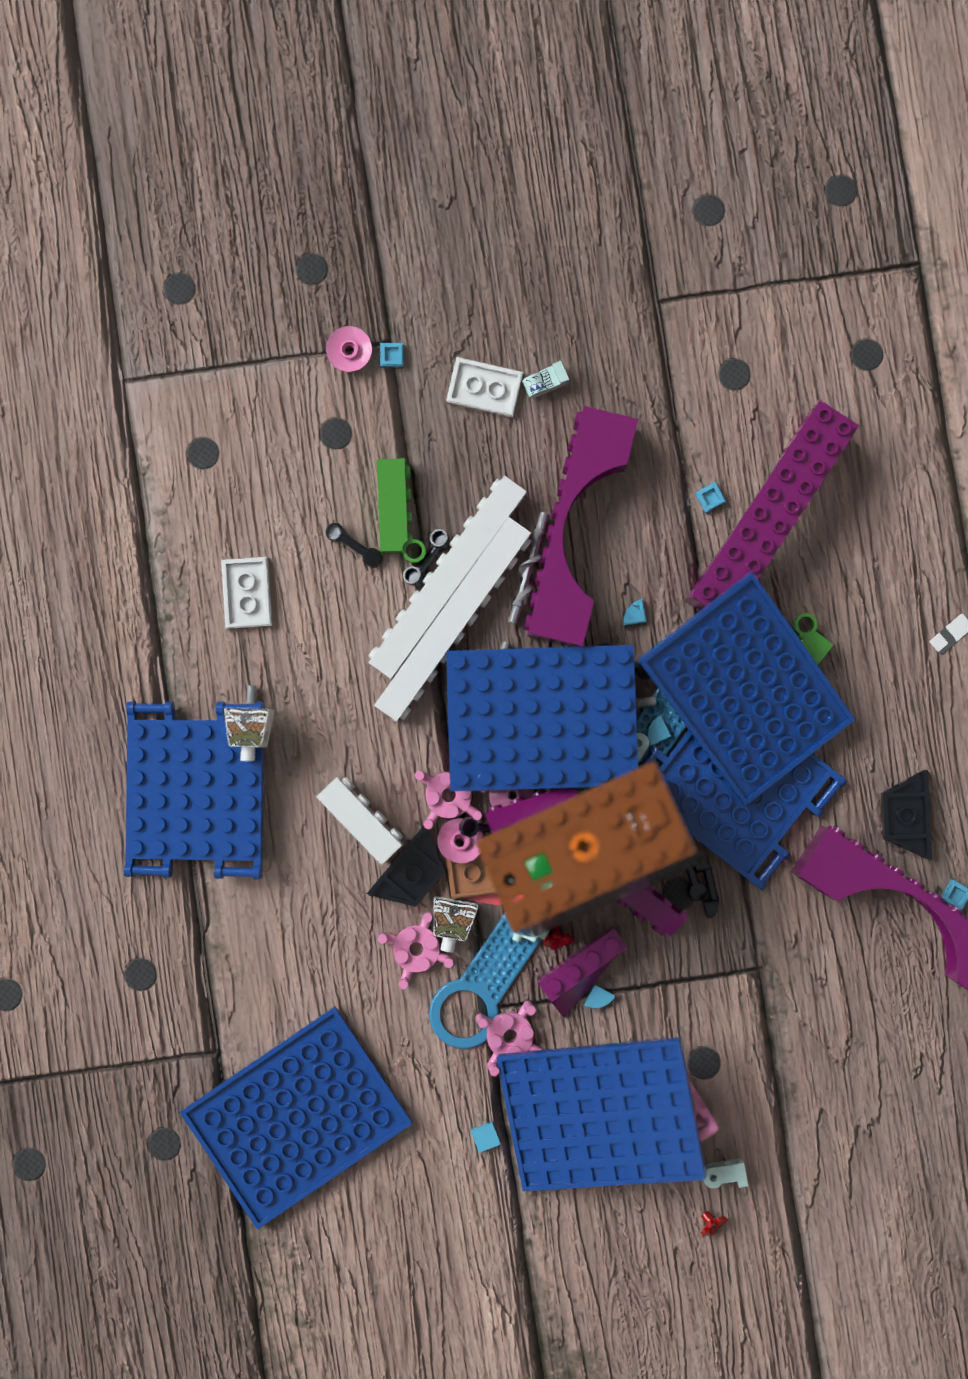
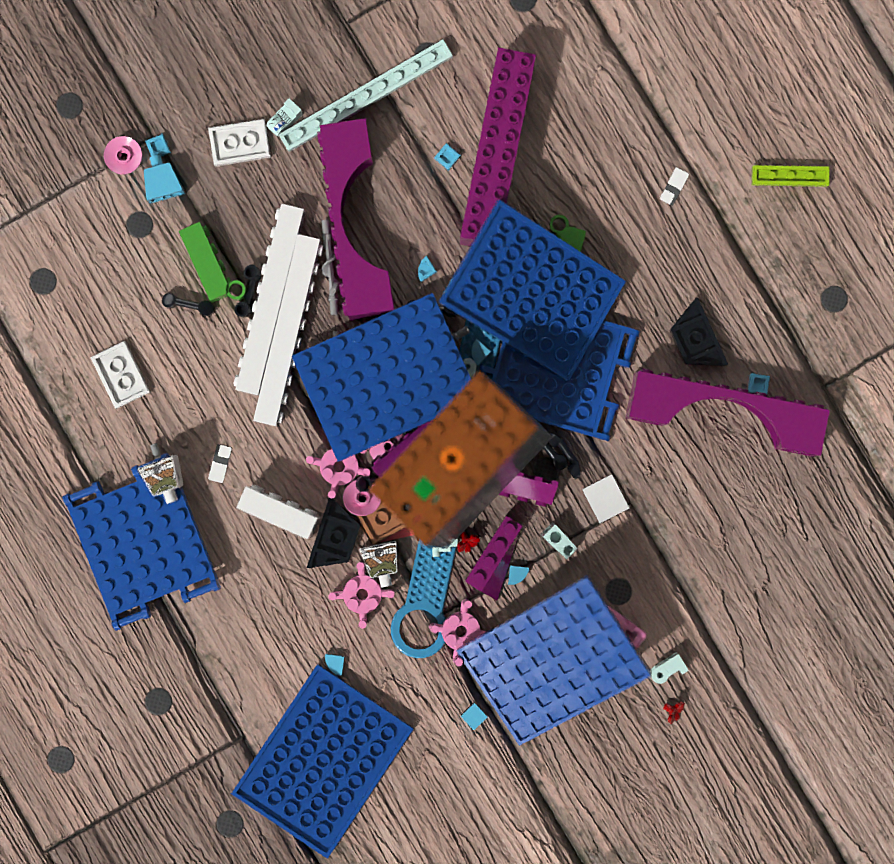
camera: 25 degrees left, 0 degrees up
(316, 736) = (219, 463): none -> white sticker
(354, 1013) = (335, 663): none -> medium azure tile
(380, 395) = (161, 181): none -> medium azure torso
(648, 391) = (367, 94): none -> light aqua plate
(660, 979) = (558, 540): none -> light aqua leg
(732, 953) = (605, 498): none -> white sticker

